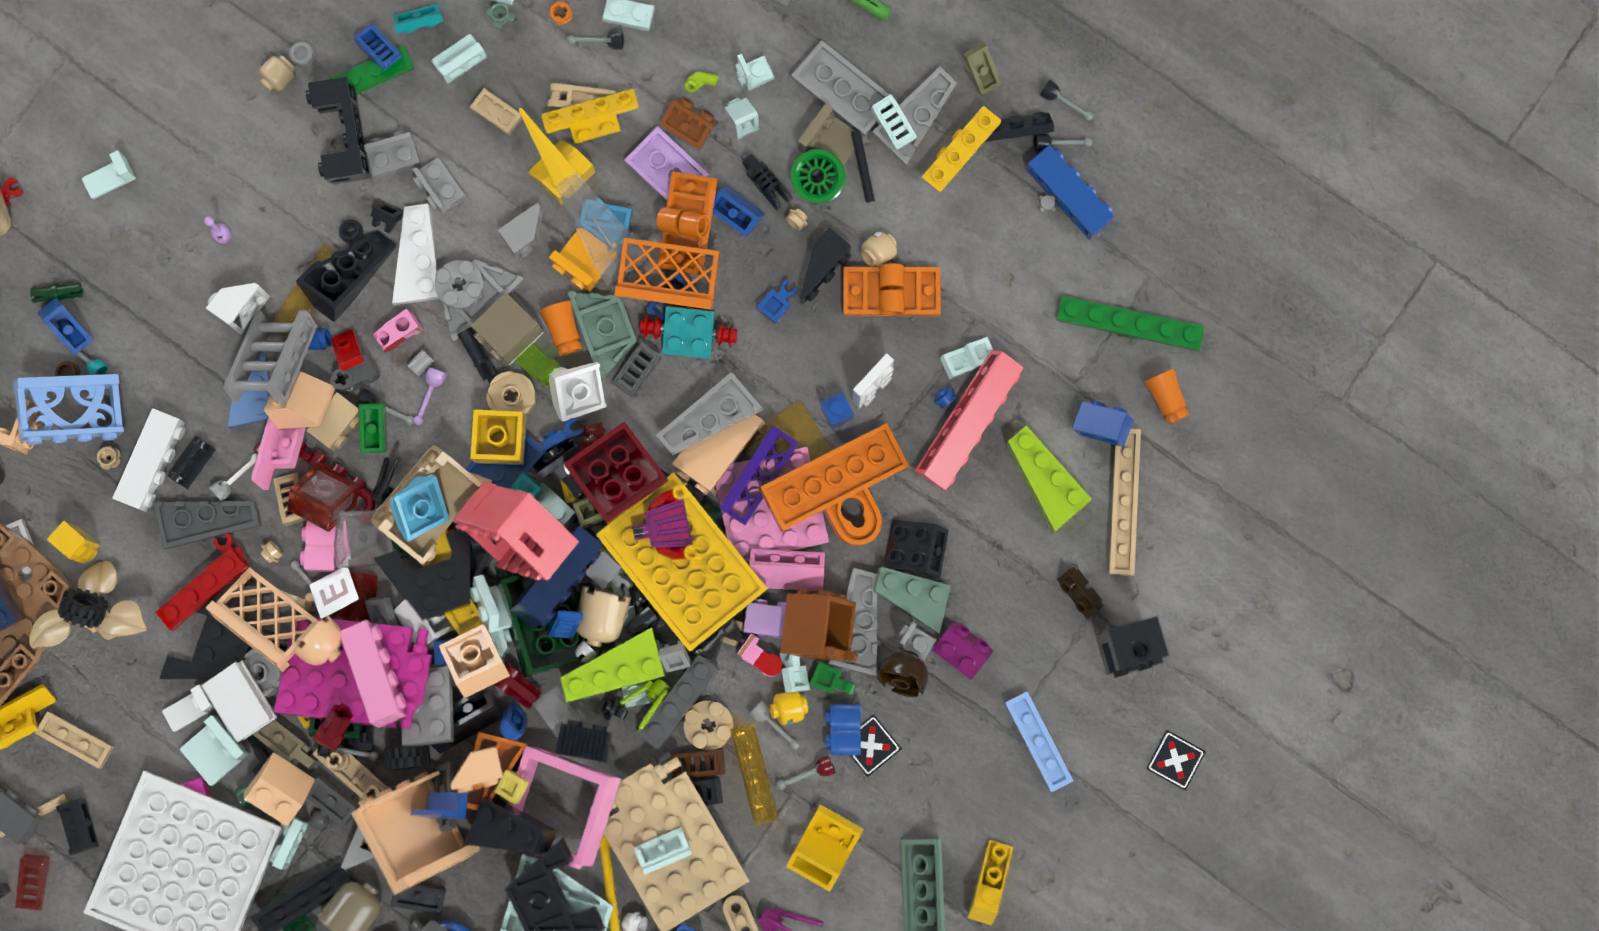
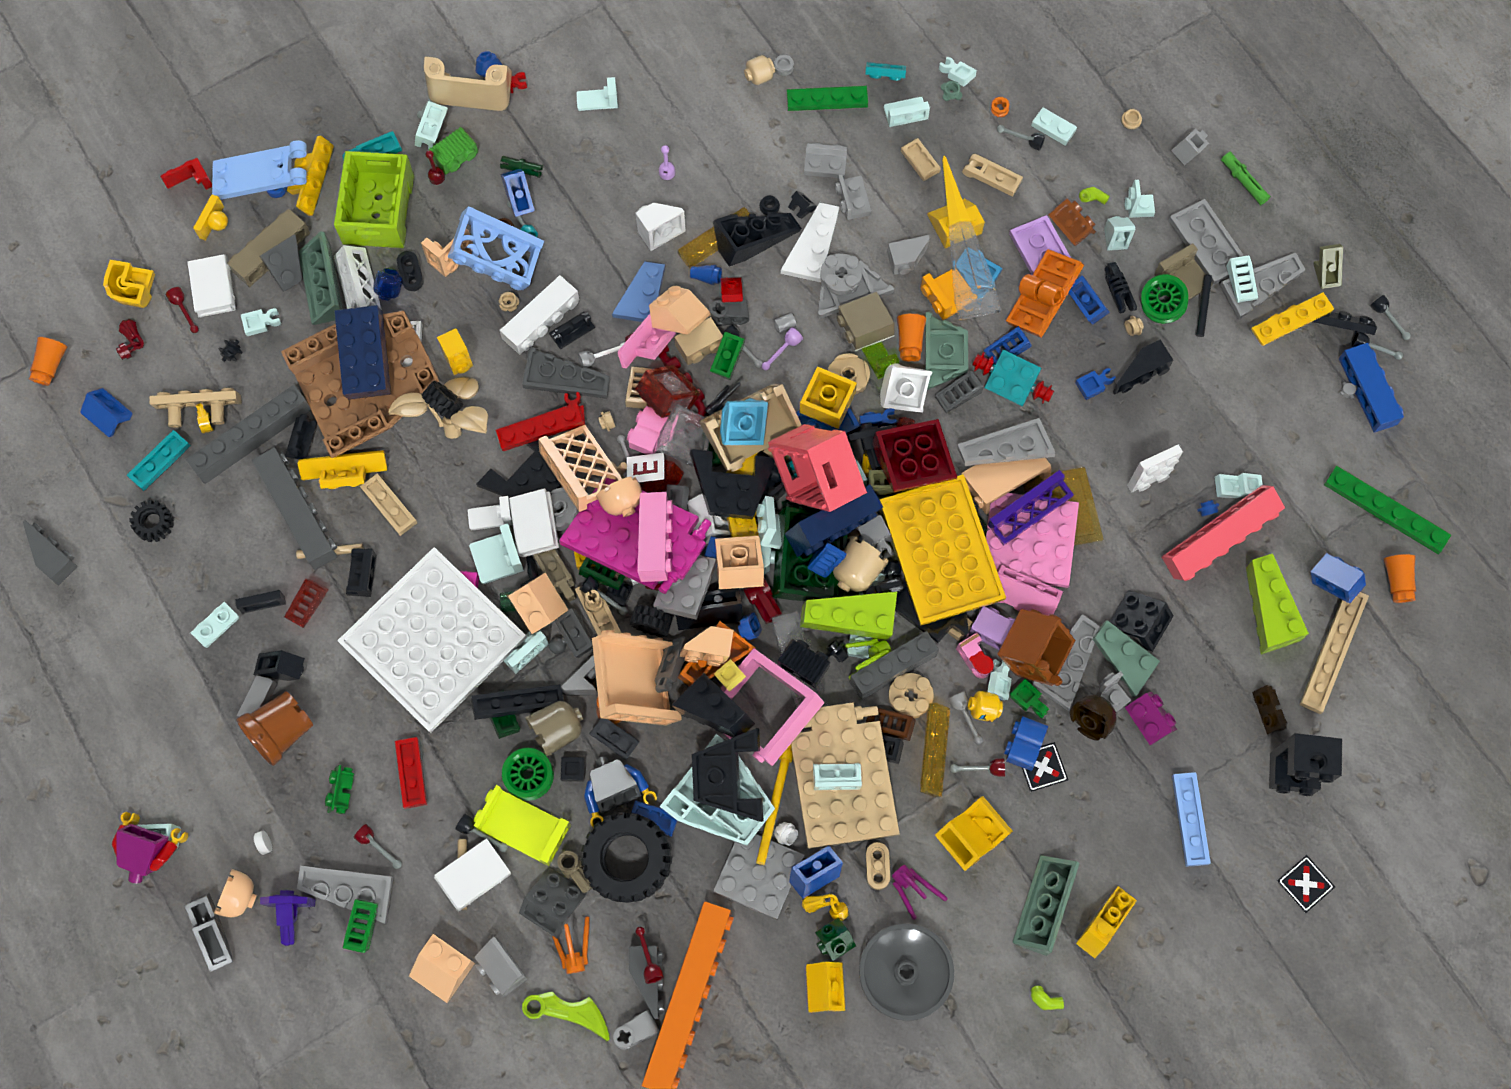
camera: 20 degrees right, 10 degrees down
(286, 367) = (676, 281): light grey fence -> none
(333, 728) = (600, 571): dark red piece -> none
(341, 96) = (798, 98): black plate -> none
(368, 35) = (836, 73): blue slope -> none
(398, 330) = (776, 291): bright pink leg -> none
(444, 806) = (666, 668): blue panel -> none
(477, 355) = (834, 338): black piece -> none
(586, 650) = (833, 590): white hinge -> none
(592, 117) = (996, 190): yellow bracket -> none
(661, 294) = (1001, 338): orange fence -> none
(668, 526) = (944, 512): torso -> none
(674, 657) = (906, 624): light grey tile -> none
(834, 478) = (1090, 535): orange plate -> none
(837, 410) = (1114, 484): blue brick -> none
(878, 249) = (1194, 373): tan head -> none
(891, 291) = (1193, 409): orange plate -> none

